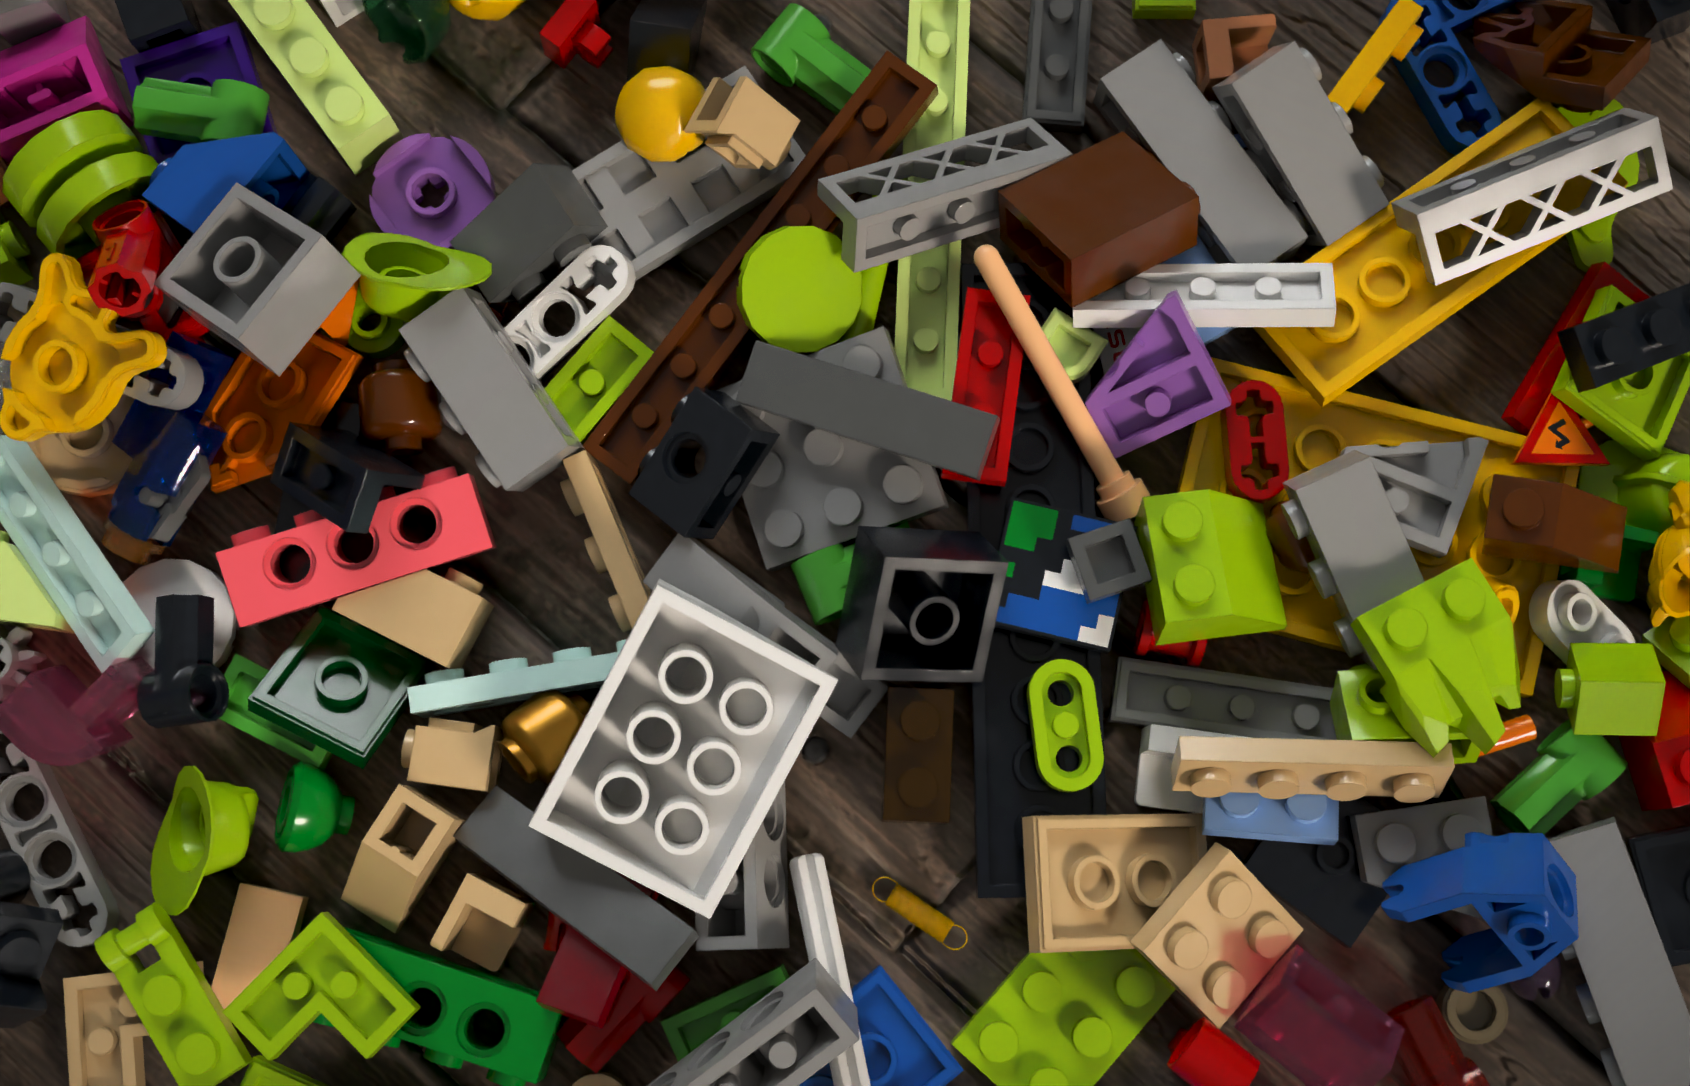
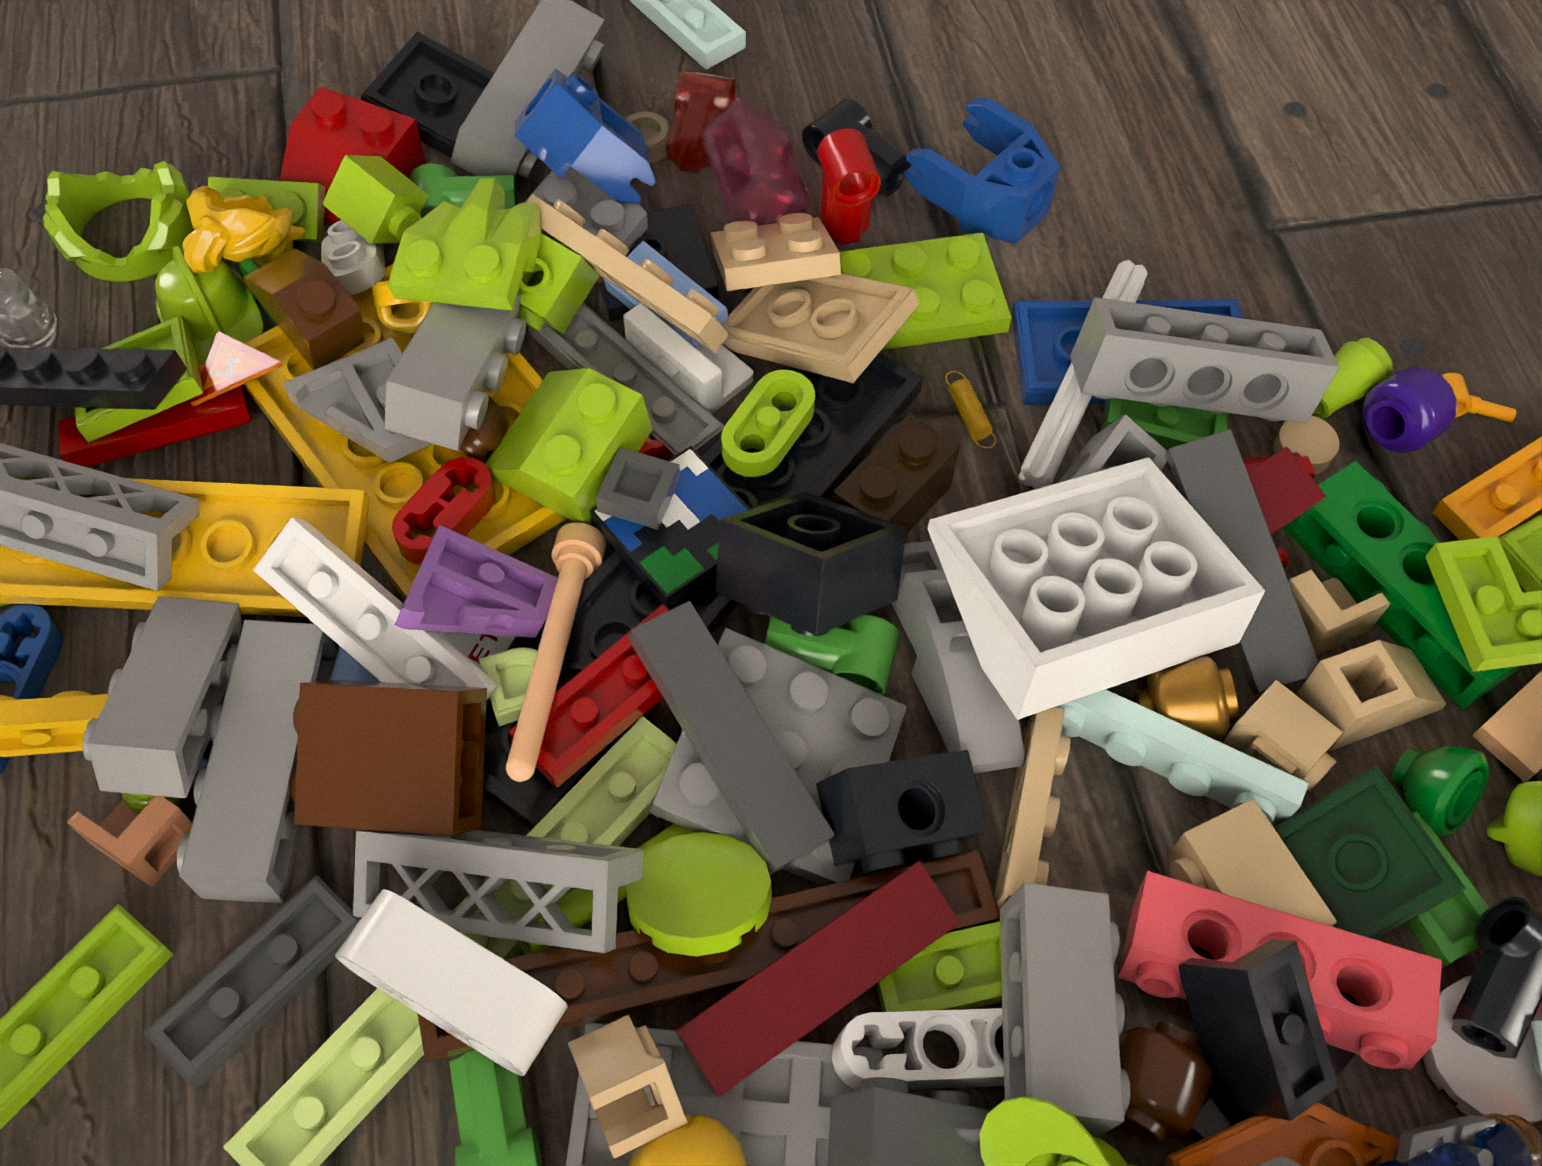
camera: 145 degrees left, 20 degrees down
(673, 299) = (816, 978): none -> dark red tile
(904, 91) = (452, 981): none -> white beam

